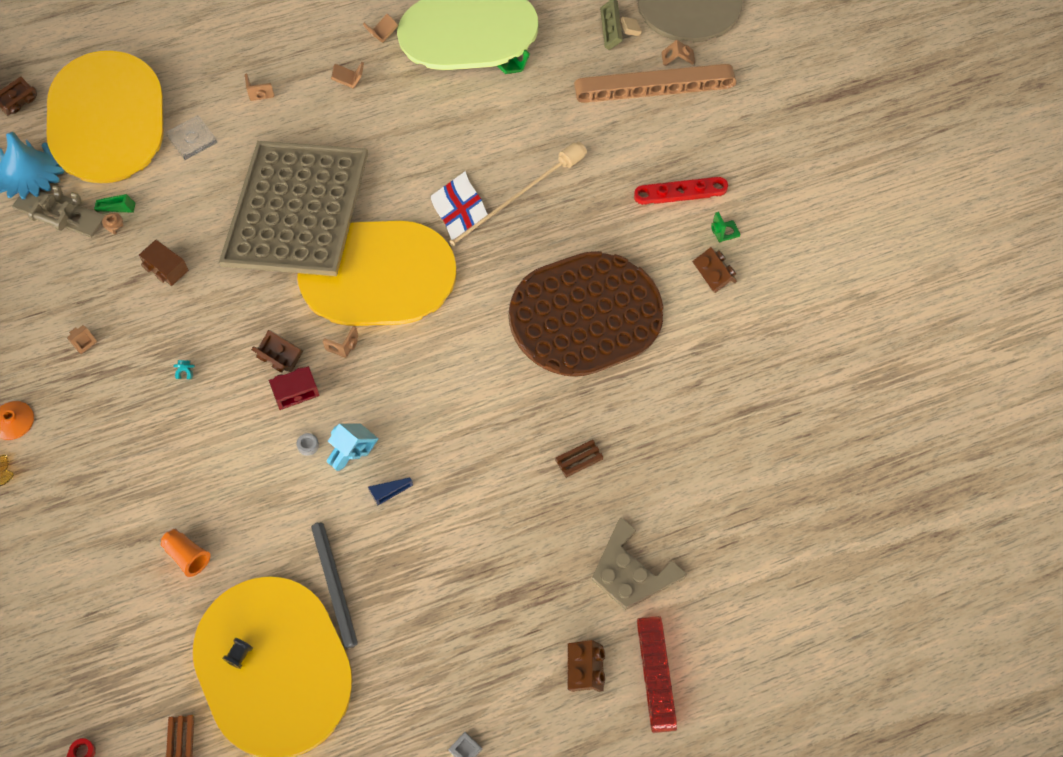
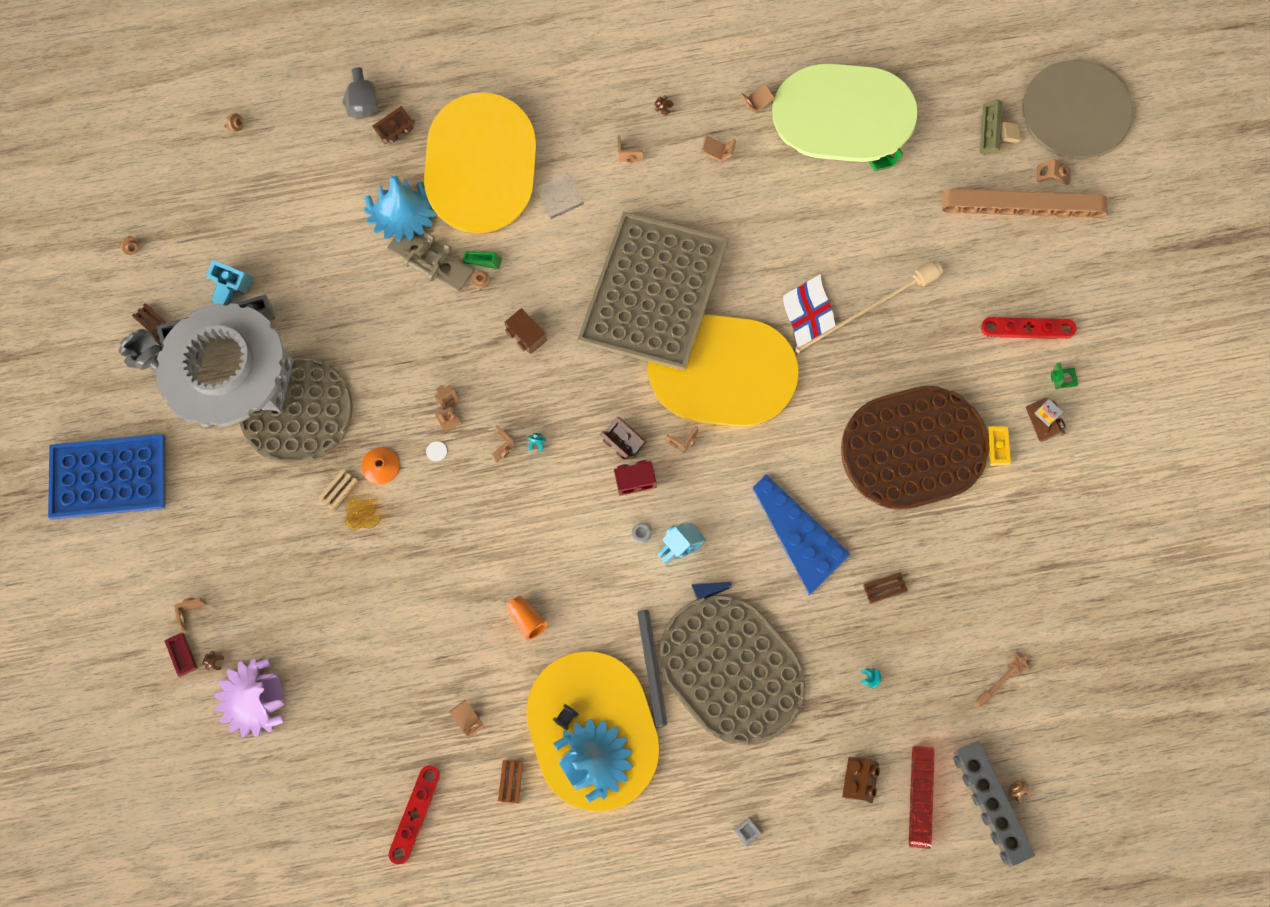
camera: 15 degrees right, 10 degrees up
(74, 396) = (436, 451): none -> white sticker
(85, 361) = (448, 419): none -> medium nougat tile
(121, 675) = (466, 719): none -> medium nougat bracket
(148, 381) = (505, 449): none -> medium nougat bracket
(276, 695) = (594, 758): none -> dark azure piece
(287, 44) = (661, 104): none -> reddish brown plate
(424, 573) = (732, 670): none -> dark tan tile
(485, 424) = (803, 539): none -> blue wing
(581, 551) = (873, 677): none -> teal plate
(625, 577) = (909, 706): dark tan wing -> none
(672, 301) = (999, 445): none -> yellow plate
(716, 259) = (1049, 412): none -> light grey tile
(734, 515) = (1017, 665): none -> medium nougat piece
(751, 673) = (994, 791): none -> dark grey brick
(761, 645) = (1017, 789): none -> medium nougat plate

